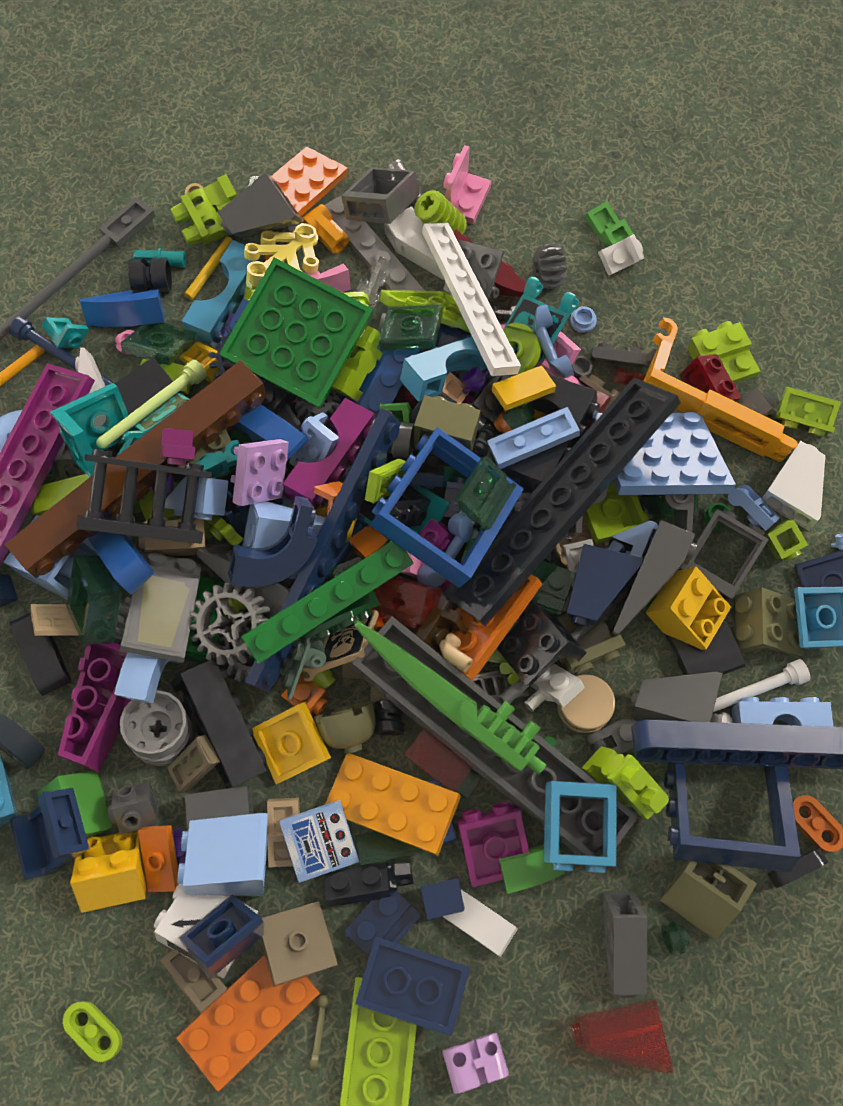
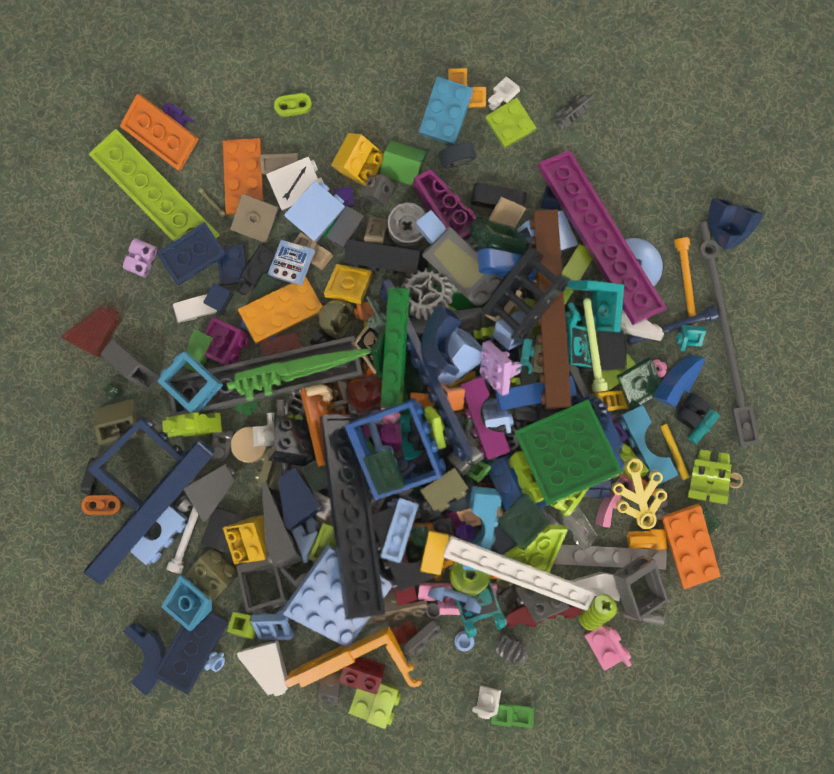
camera: 130 degrees right, 15 degrees up
(49, 834) = (395, 141): dark blue panel -> none
(159, 858) = (344, 184): orange plate -> none
(177, 446) = (539, 330): magenta bracket -> none
(223, 935) = (281, 183): dark blue slope -> none
(259, 209) = (680, 502): dark grey slope -> none
(807, 411) = (301, 714): lime bracket -> none

